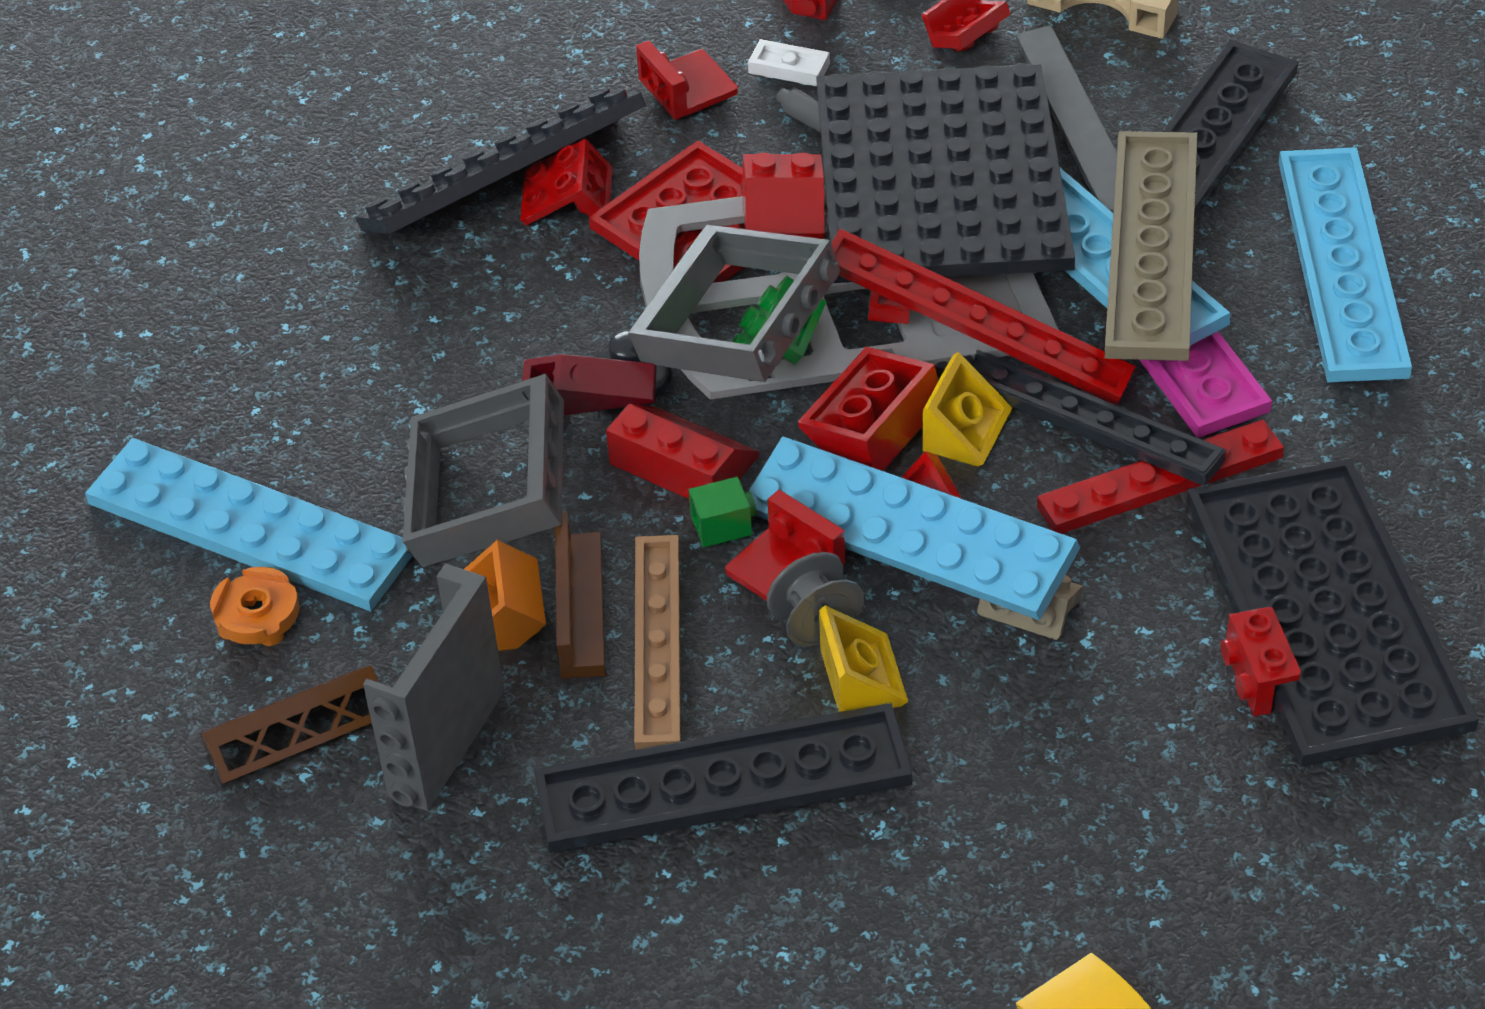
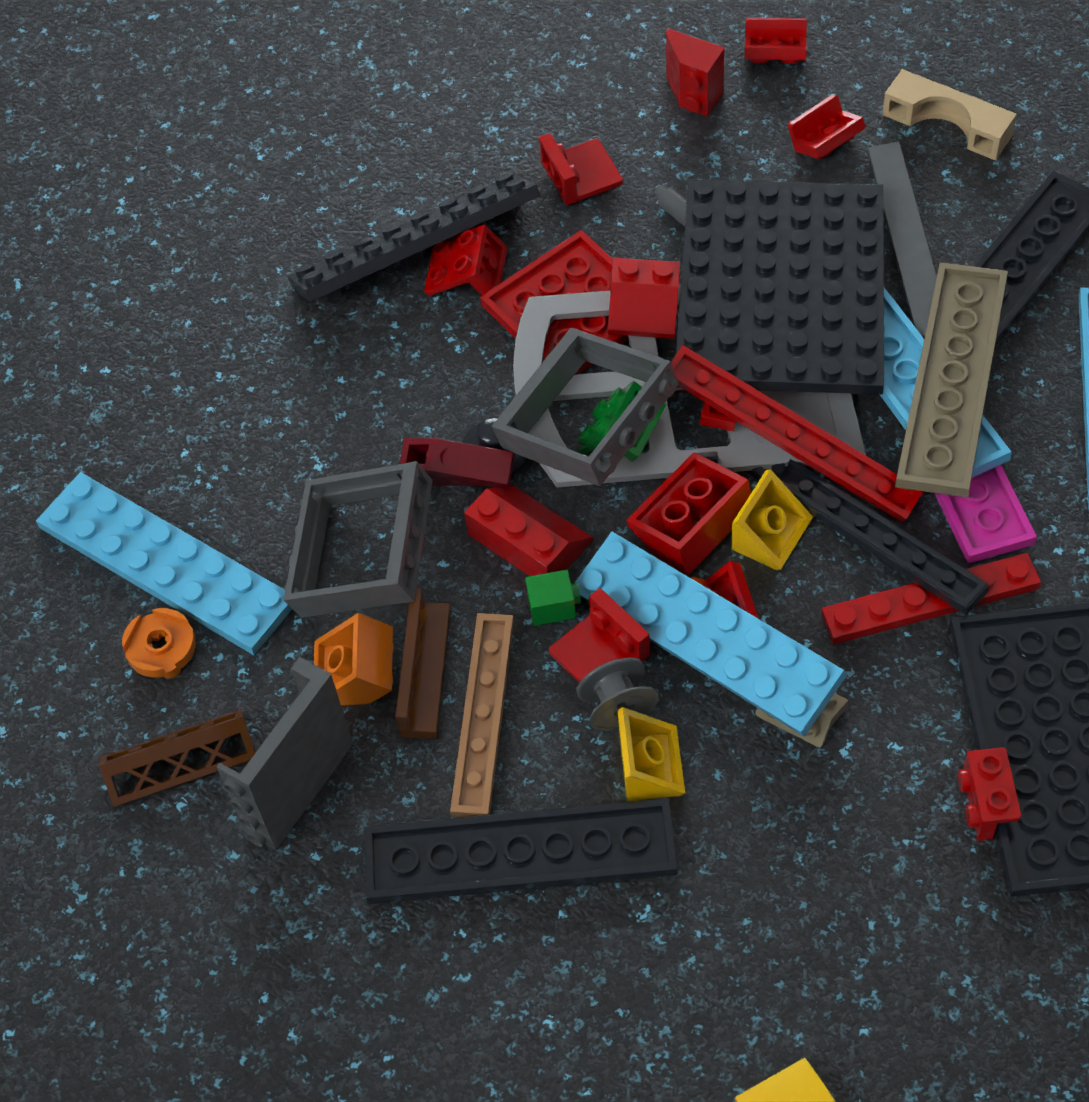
camera: 10 degrees right, 10 degrees up
(788, 62) = (669, 158): white plate -> none

